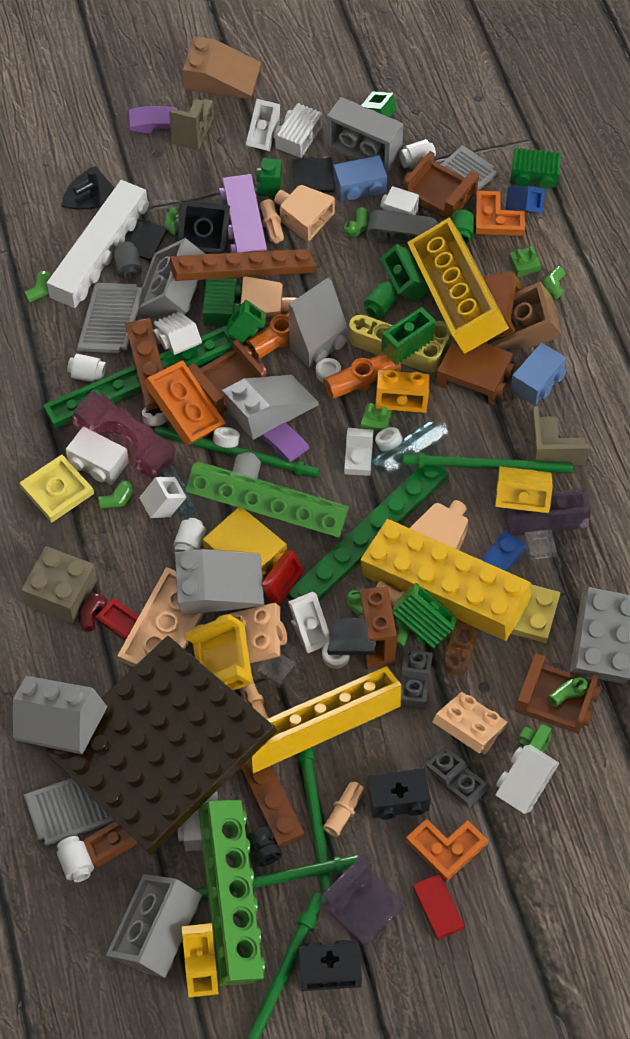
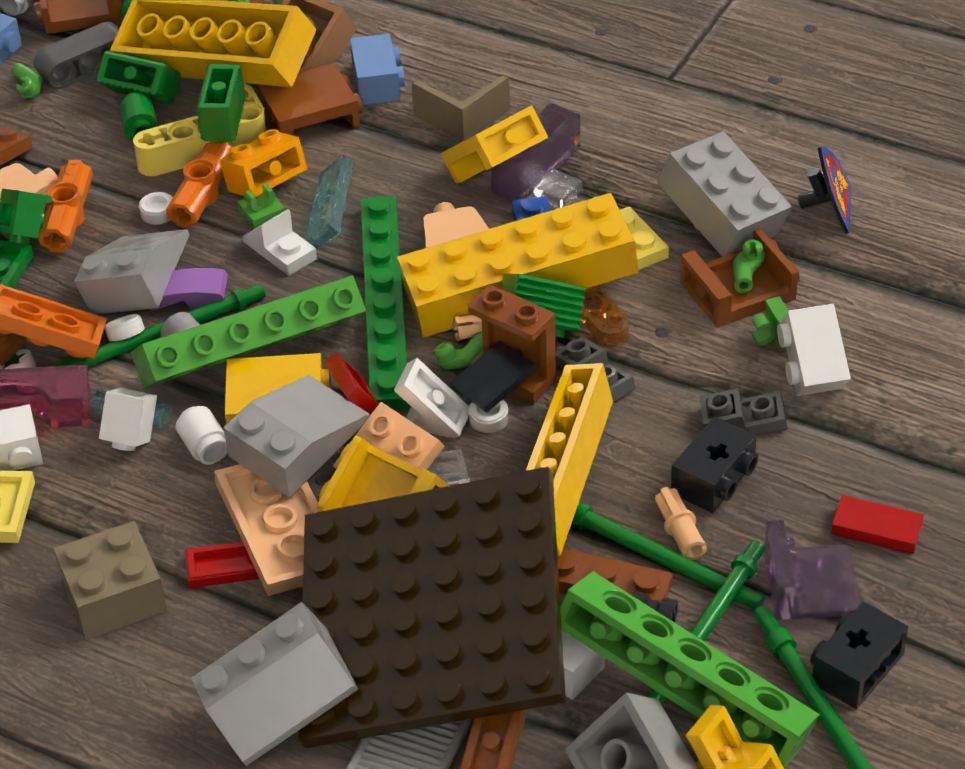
camera: 45 degrees left, 15 degrees down
(88, 609) = (170, 572): dark red arm -> none
(119, 497) = (71, 463): bright green arm -> none
(226, 371) = (54, 267): dark orange panel -> none
(316, 324) = (107, 165): light grey slope -> none
(388, 439) = (302, 211): white tile -> none
(400, 201) = (52, 30): white brick -> none
(444, 853) = (822, 476): orange plate -> none
(470, 722) = (712, 354): light nougat plate -> none
(484, 463) = (361, 197): green bar -> none

